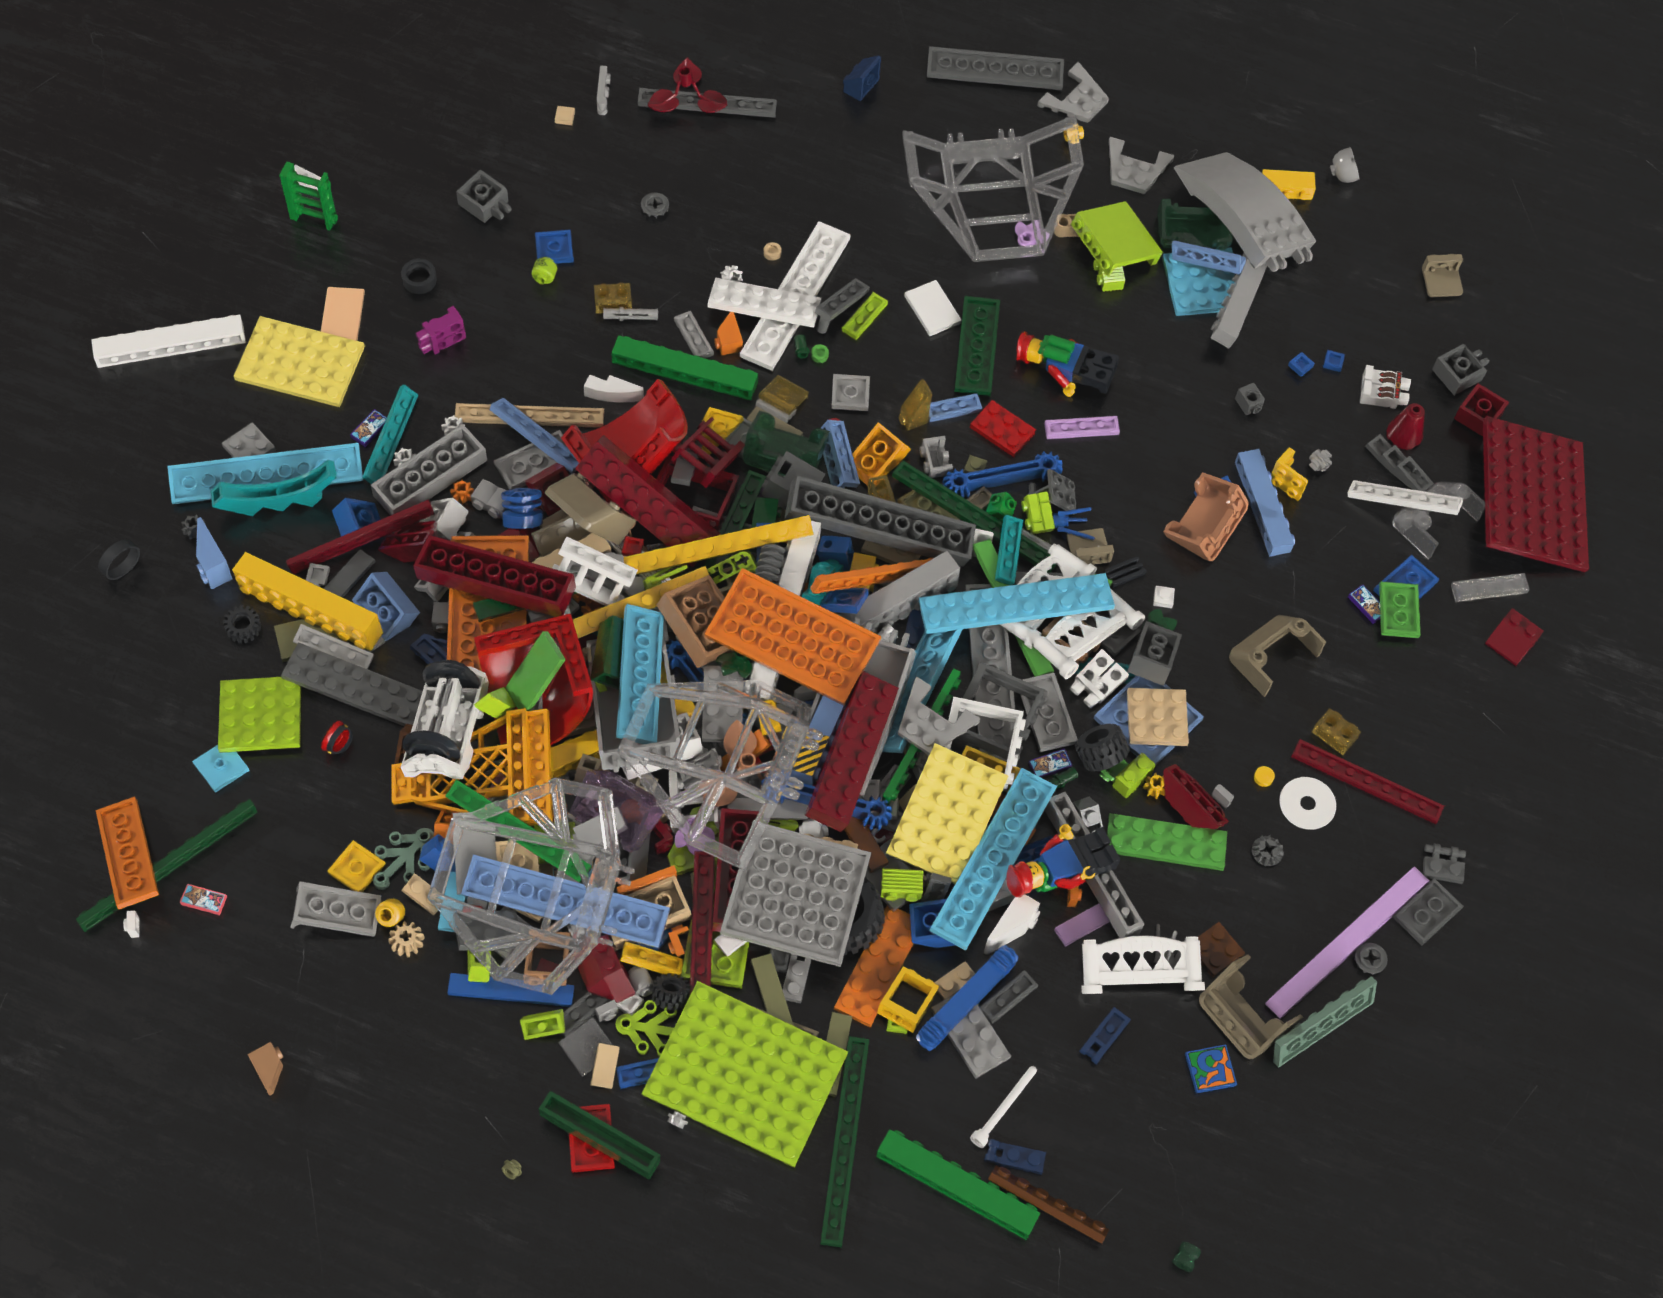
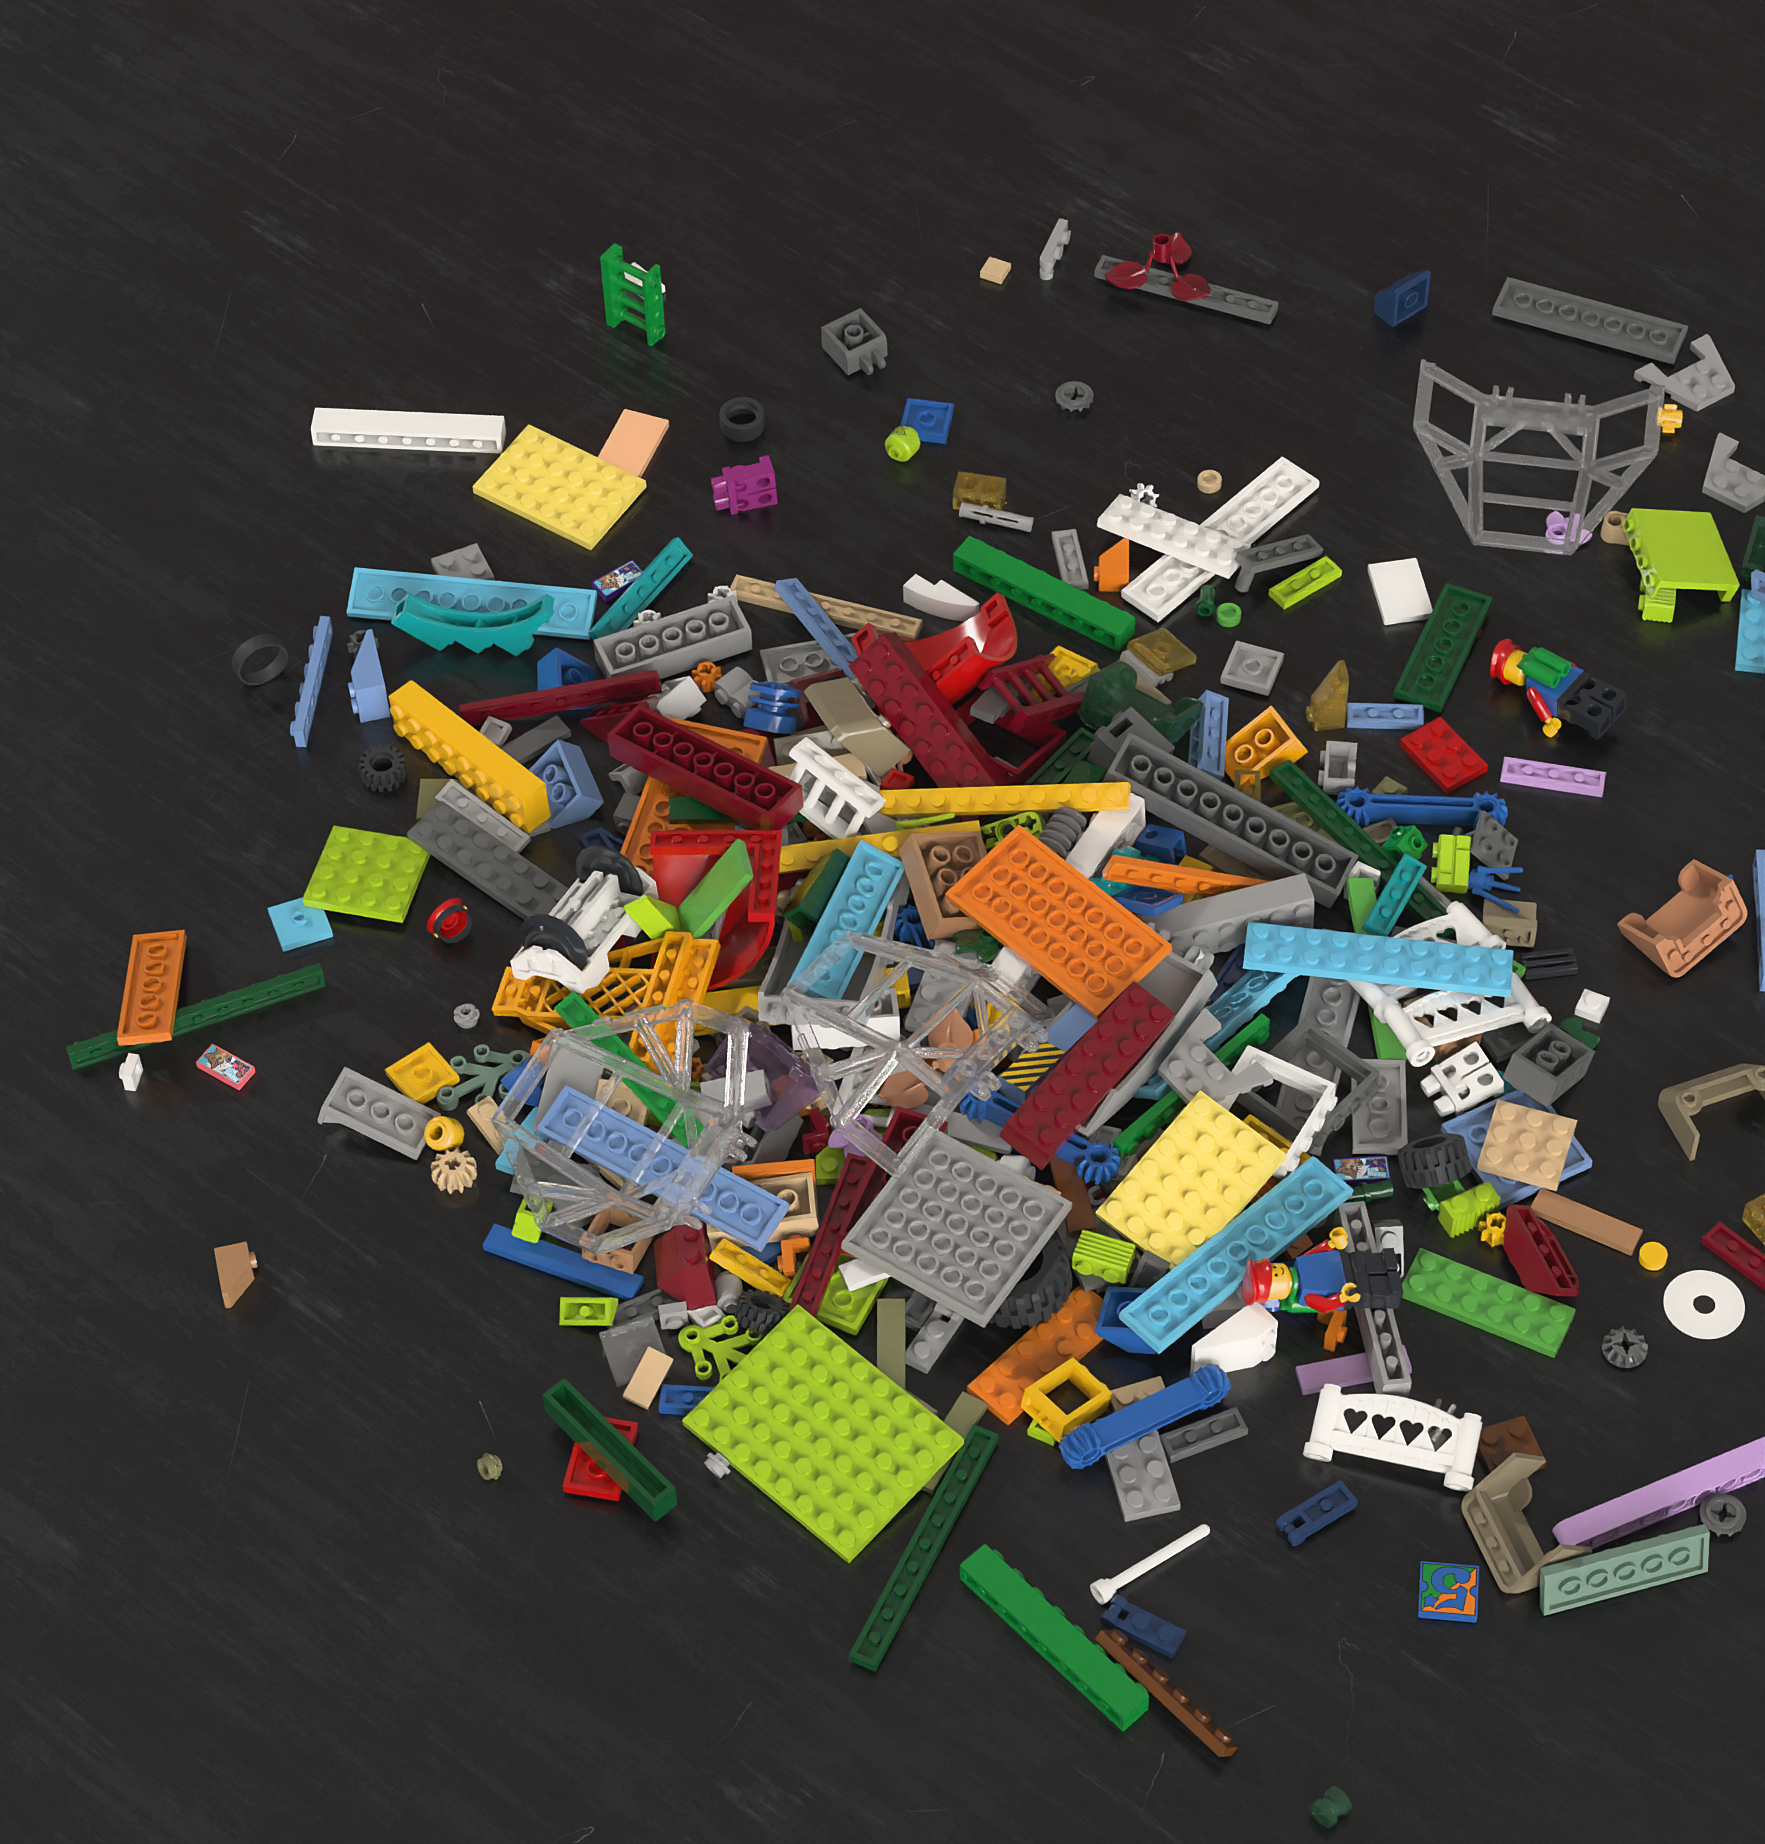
camera: 25 degrees right, 10 degrees down
(163, 560) = (313, 677): none -> medium blue plate
(373, 814) = (469, 1020): none -> light grey plate
(1212, 762) = (1586, 1221): none -> medium nougat tile
(1222, 796) = (1584, 1264): light grey tile -> none

